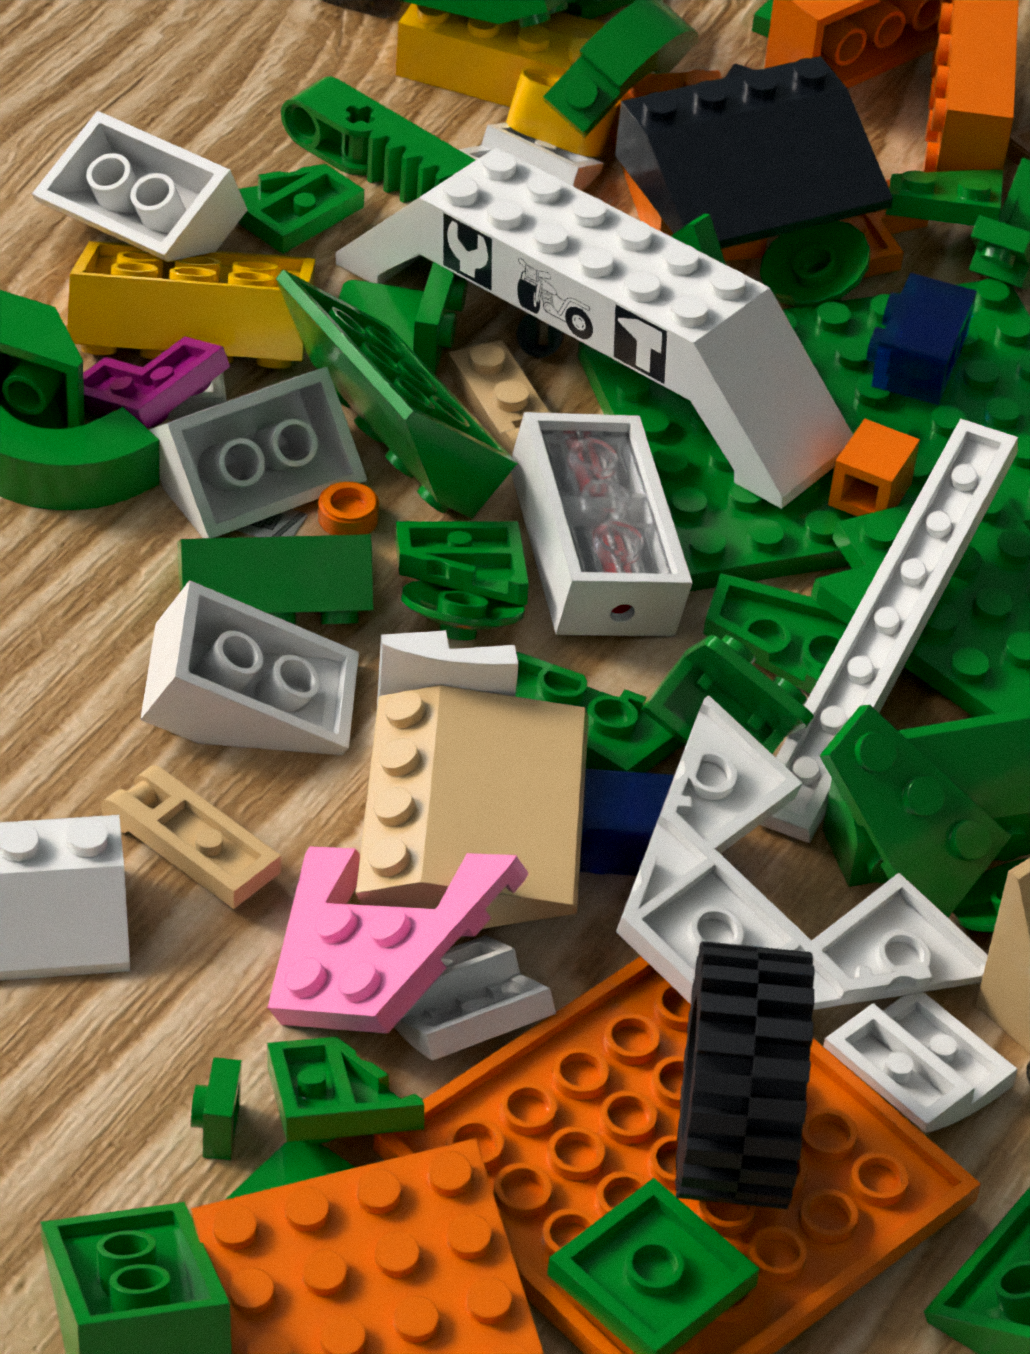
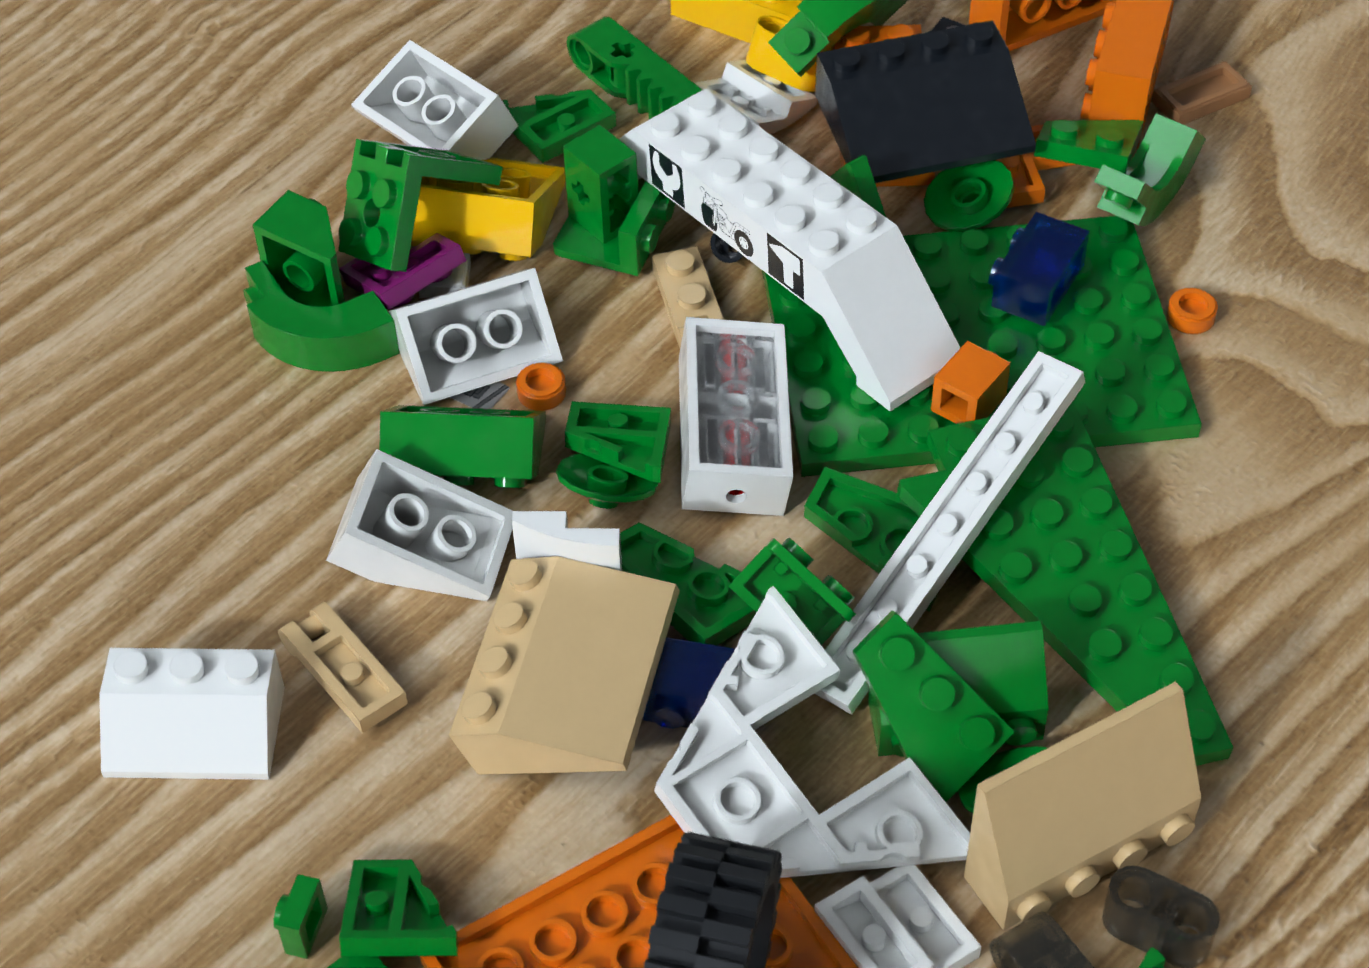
camera: 15 degrees right, 5 degrees up
(142, 276) = (389, 182): none -> green bracket
(368, 962) = (447, 795): bright pink wing -> none
(381, 262) = (600, 182): none -> green brick
(399, 400) = (593, 296): green slope -> none
(474, 1000) = (523, 832): white slope -> none

